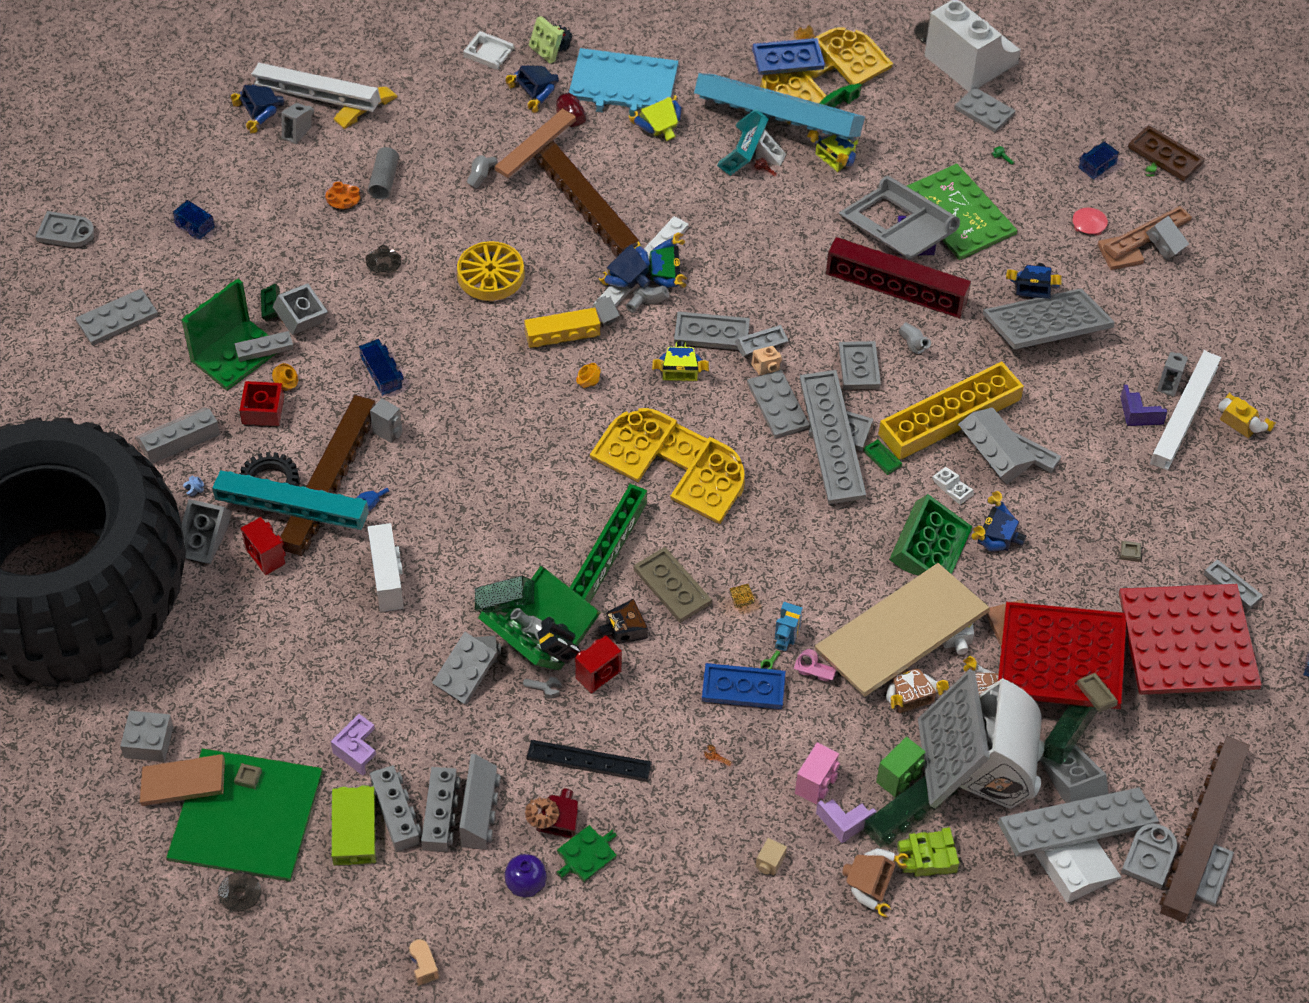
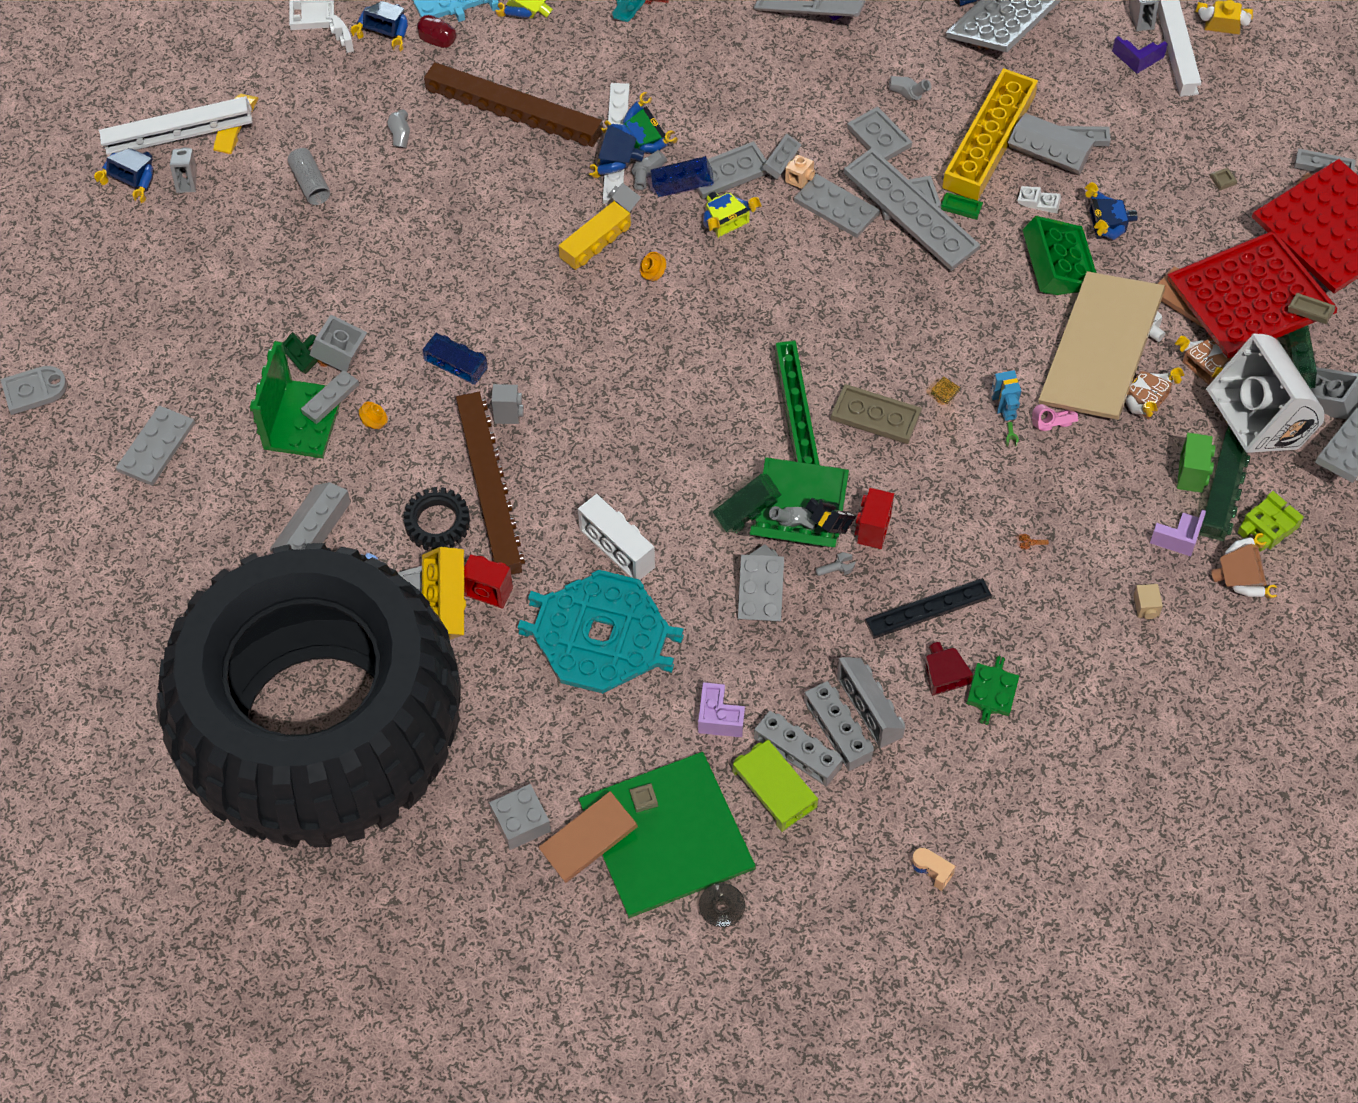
camera: 30 degrees left, 5 degrees up
(193, 219) = (157, 313): clear blue brick -> none
(218, 536) = (445, 587): none -> yellow brick
(261, 403) = (373, 451): red brick -> none
(290, 500) = (482, 523): teal brick -> none
(304, 607) = (596, 664): none -> teal plate
(342, 195) = (284, 217): orange dish -> none
(372, 497) = (544, 484): blue hand -> none
(383, 260) = (374, 258): clear smoke dish -> none
(489, 271) = (486, 218): yellow piece -> none
(496, 77) = (342, 33): none -> white slope
(525, 875) = (957, 739): dark purple cylinder -> none
(535, 143) = (435, 77): nougat tile -> none
(541, 821) = (941, 682): nougat gear -> none
(624, 623) = (865, 470): torso -> none
(665, 316) = (682, 176): none -> clear blue brick
(712, 468) = (746, 293): yellow plate -> none
(743, 686) = (1007, 468): blue plate -> none
(817, 773) = (1133, 507): bright pink brick -> none
(898, 277) = (855, 39): dark red brick -> none
(953, 738) = (1232, 408): light grey piece -> none

